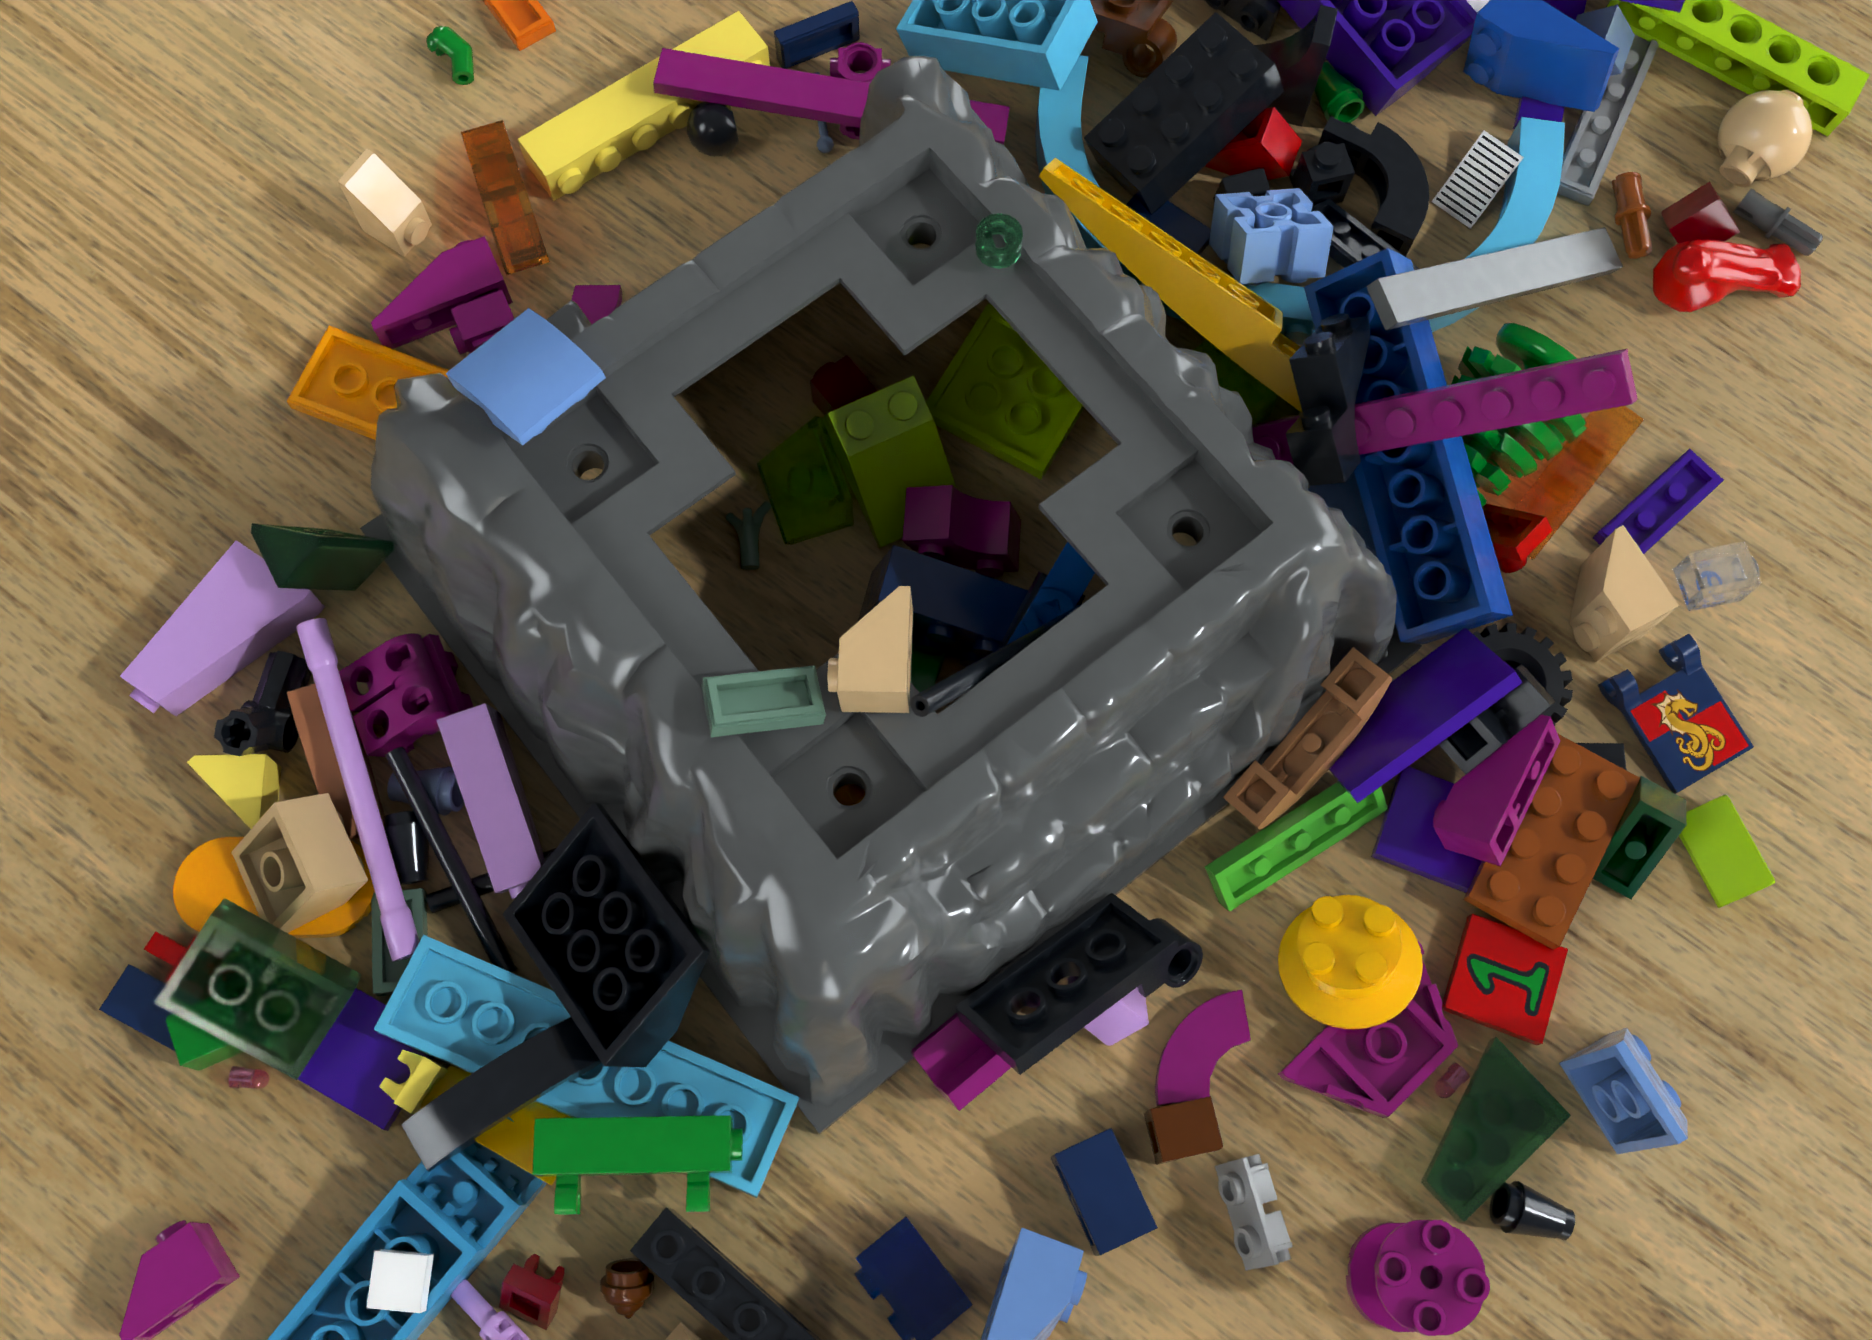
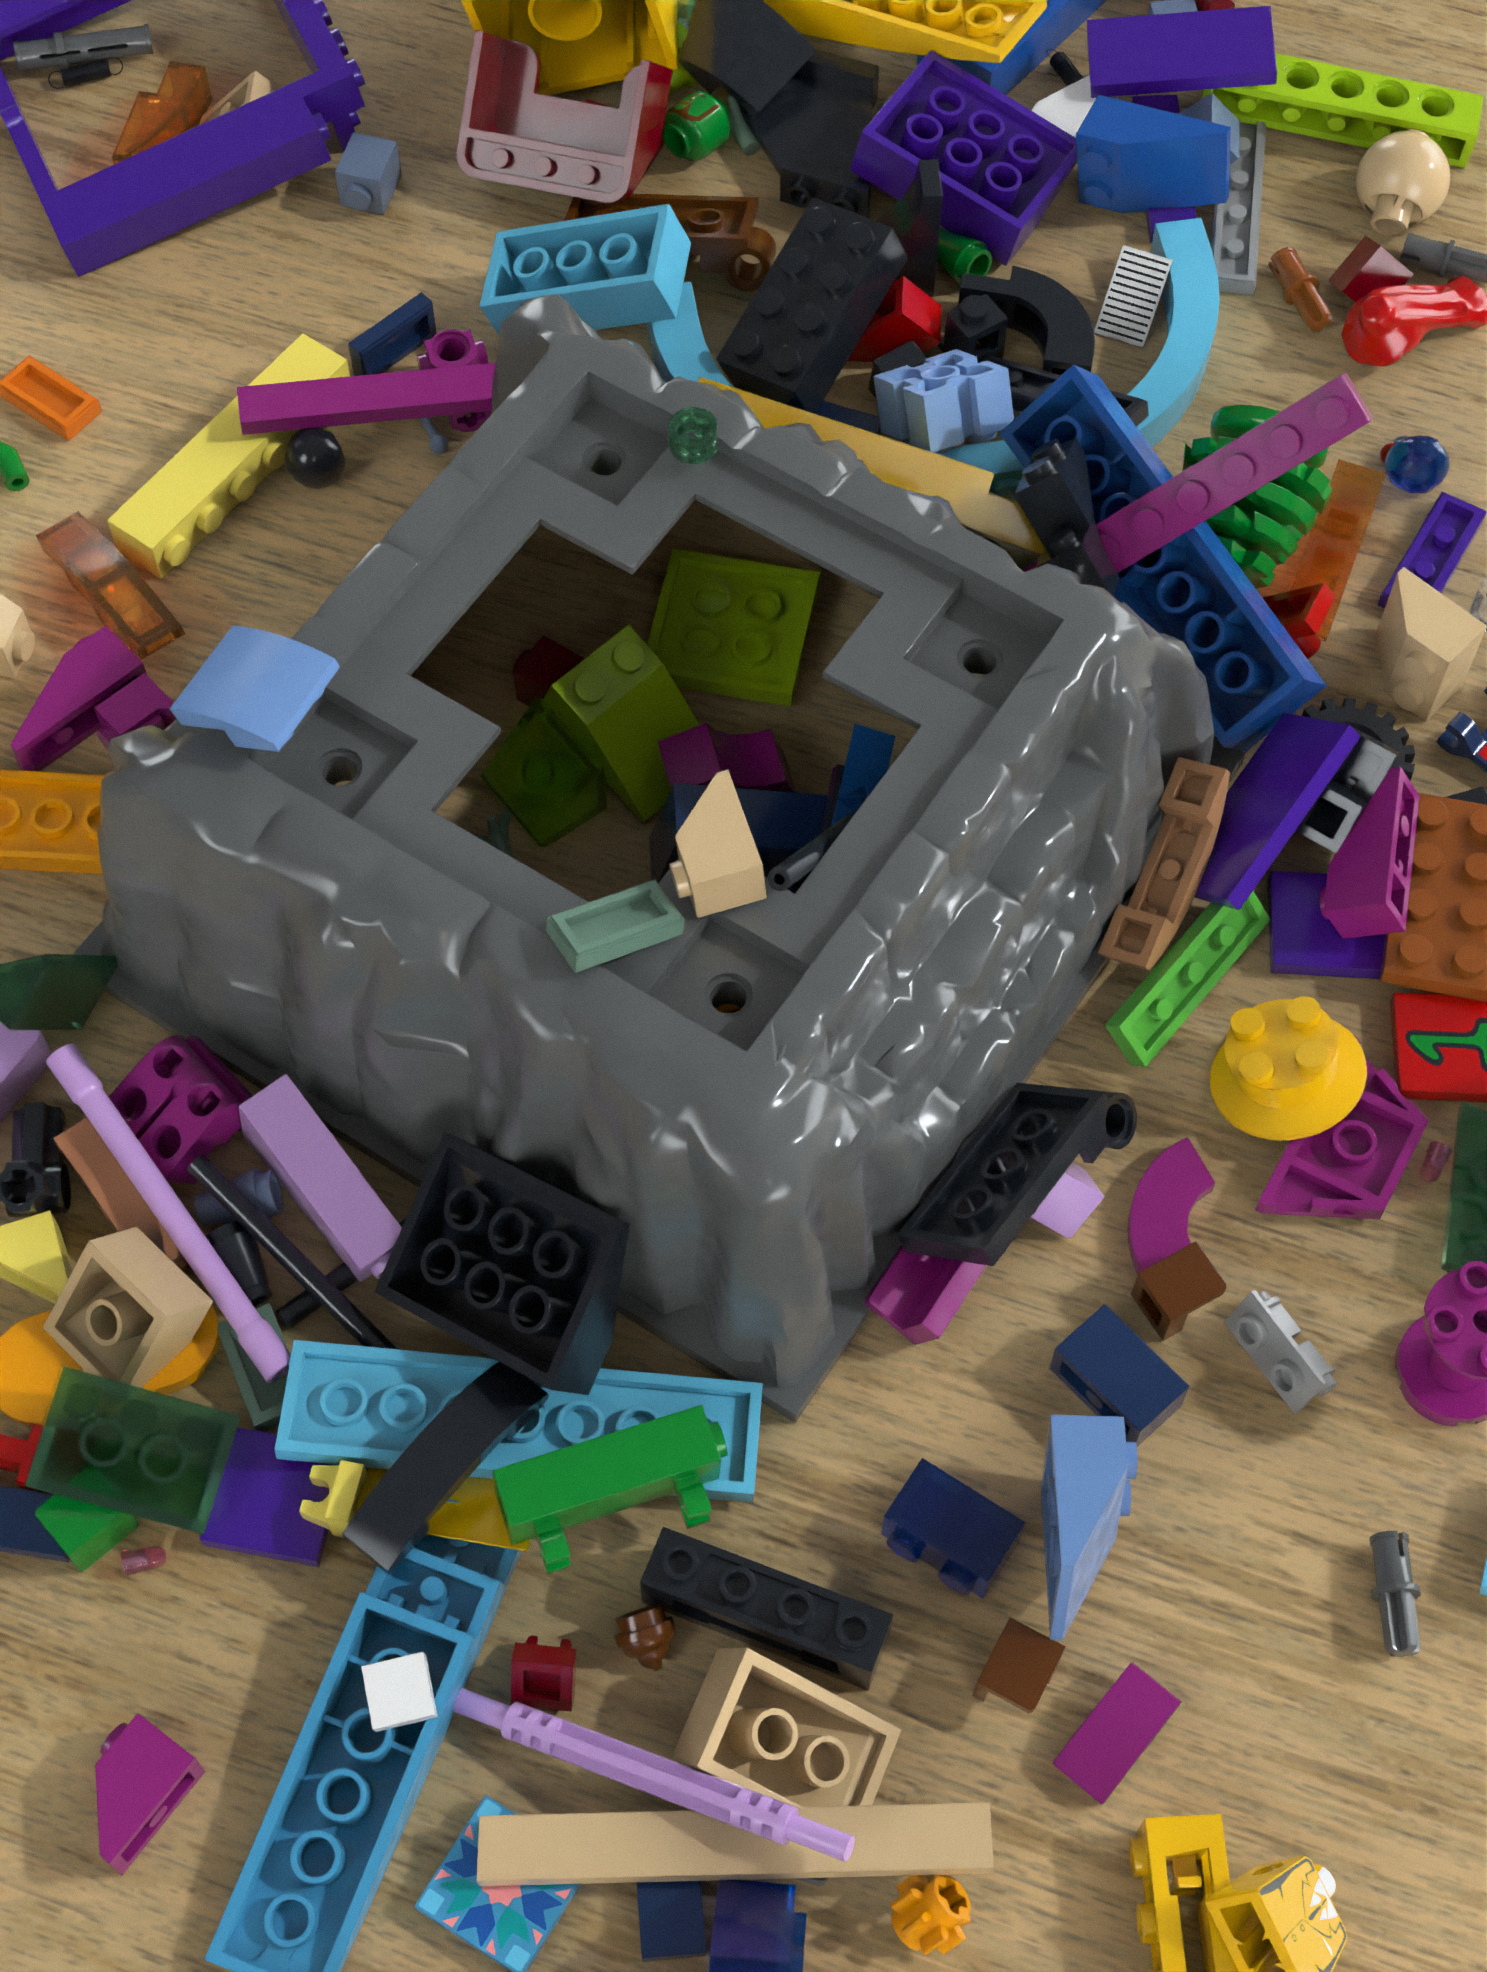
camera: 15 degrees left, 10 degrees down
(1492, 277) = (1186, 372): tile -> none
(1675, 415) = (1415, 463): none -> clear blue animal

